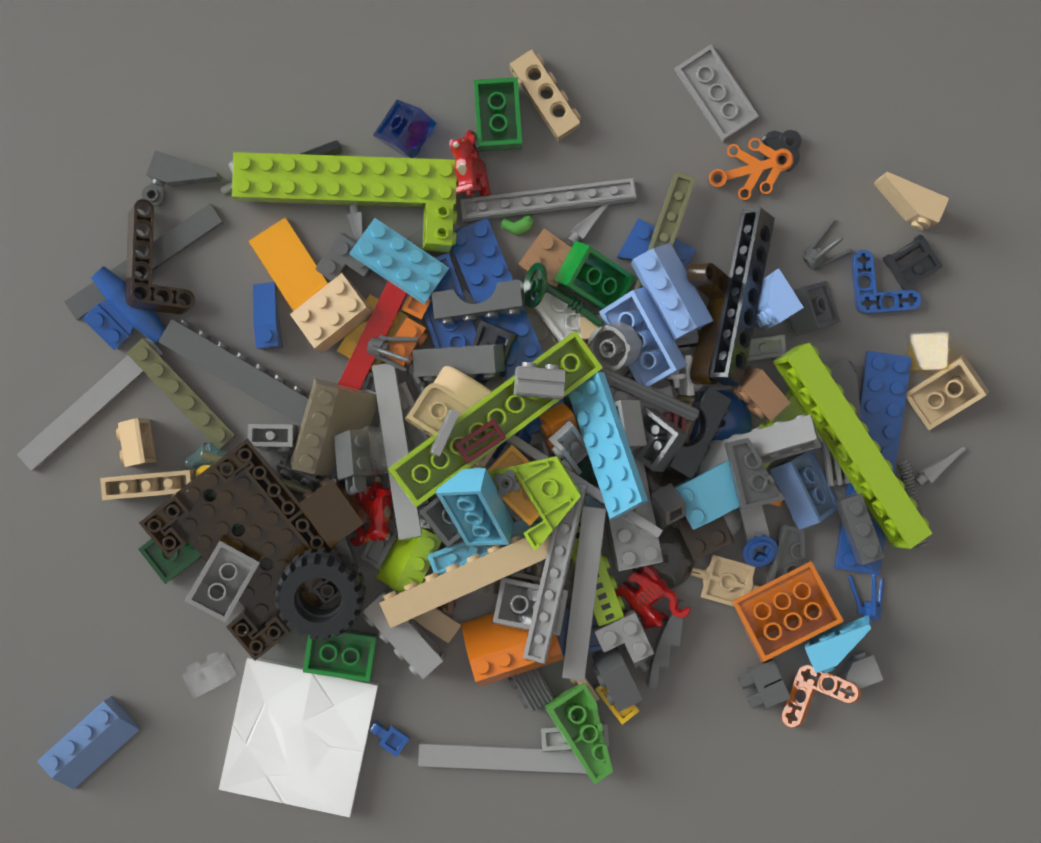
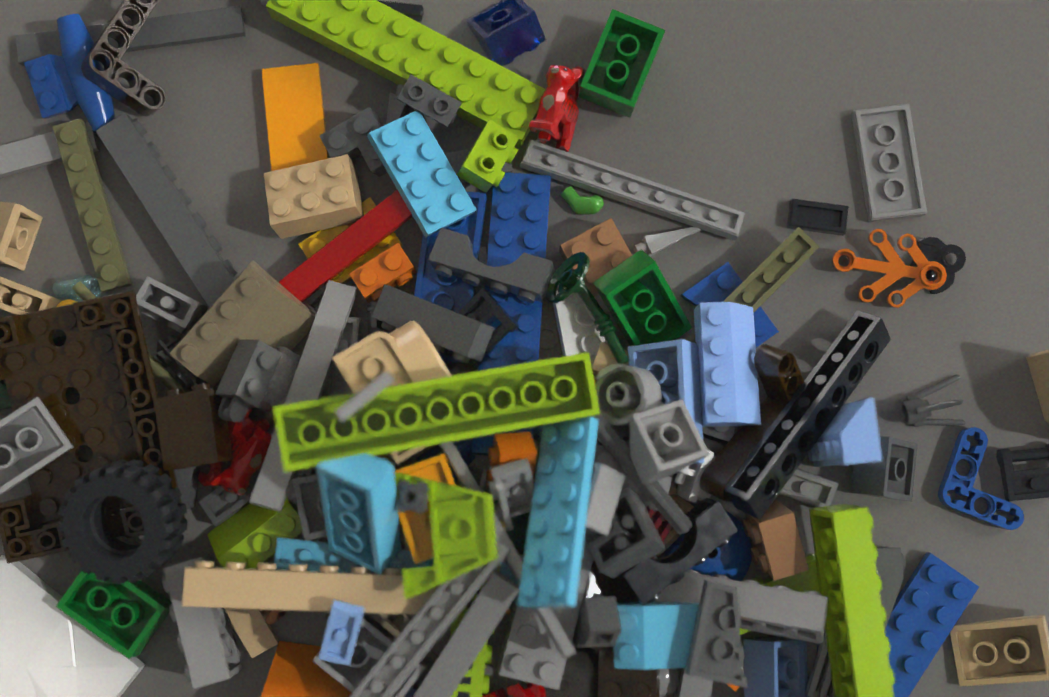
camera: 25 degrees right, 5 degrees down
(266, 316) = (236, 166): blue slope -> none
(379, 208) = (429, 101): none -> dark grey hinge
(380, 349) = (348, 264): dark grey plant -> none
(415, 308) = (414, 239): orange panel -> none
(462, 452) = (391, 430): dark red tile -> none
(503, 594) = (341, 632): none -> light blue plate
(539, 382) = (513, 392): light grey brick -> none
(559, 126) = (687, 112): tan brick -> none
(654, 364) = (664, 441): none -> light grey slope
(685, 156) = (817, 217): none -> black tile
(929, 351) = (1005, 590): clear yellow piece -> none

